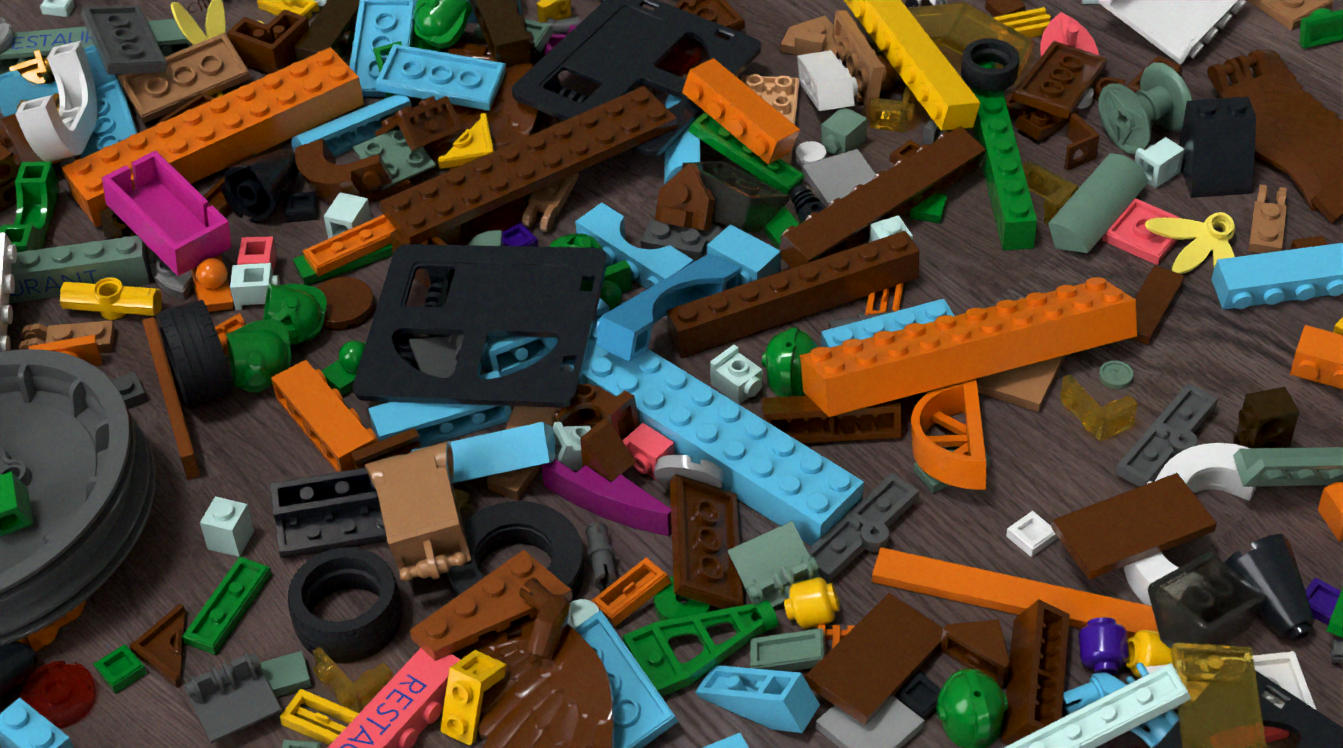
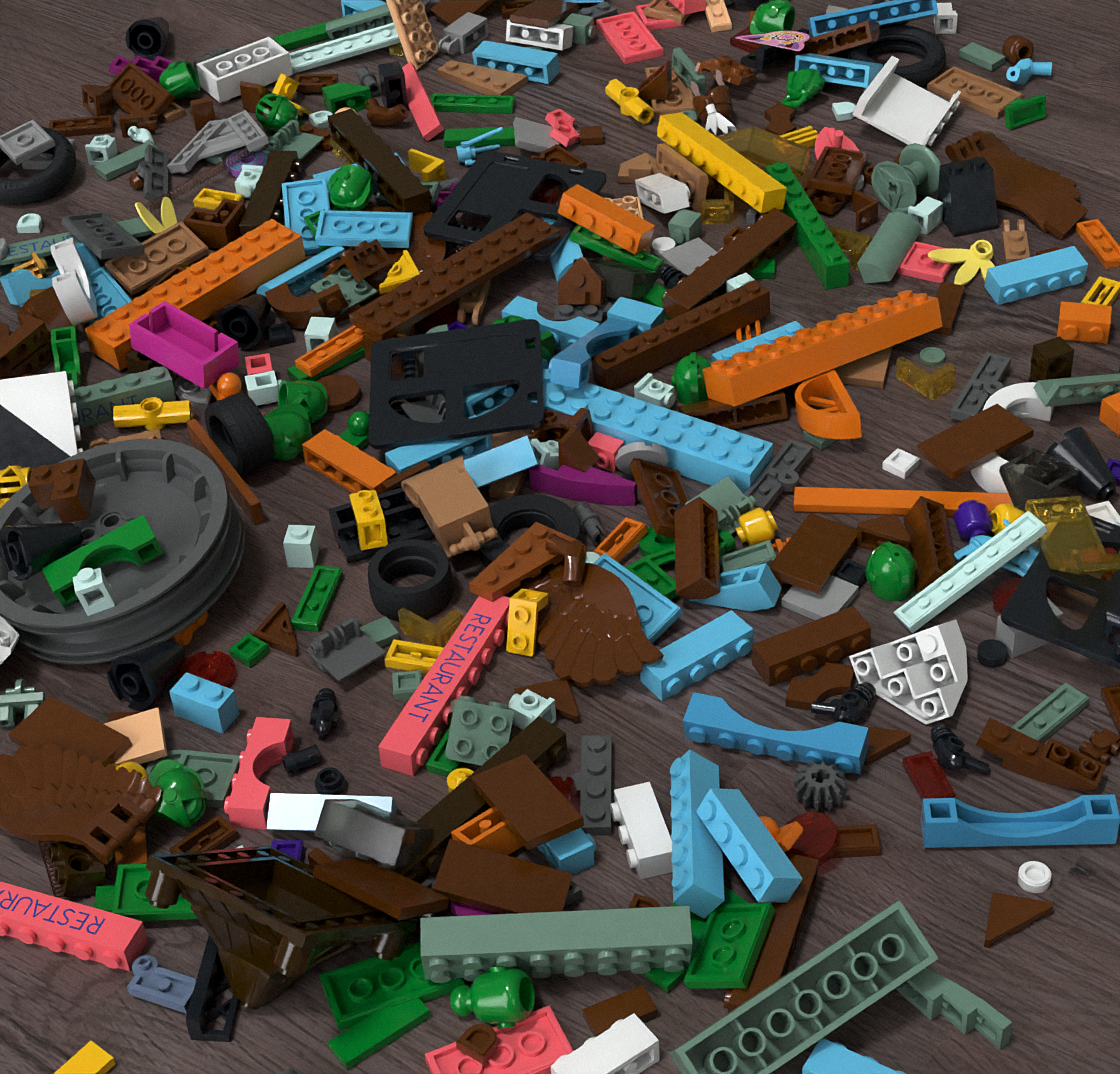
camera: 10 degrees left, 5 degrees down
(313, 506) = (369, 519): none -> yellow bracket
(720, 631) = (697, 550): none -> reddish brown brick
(993, 51) = (786, 154): black tyre -> none

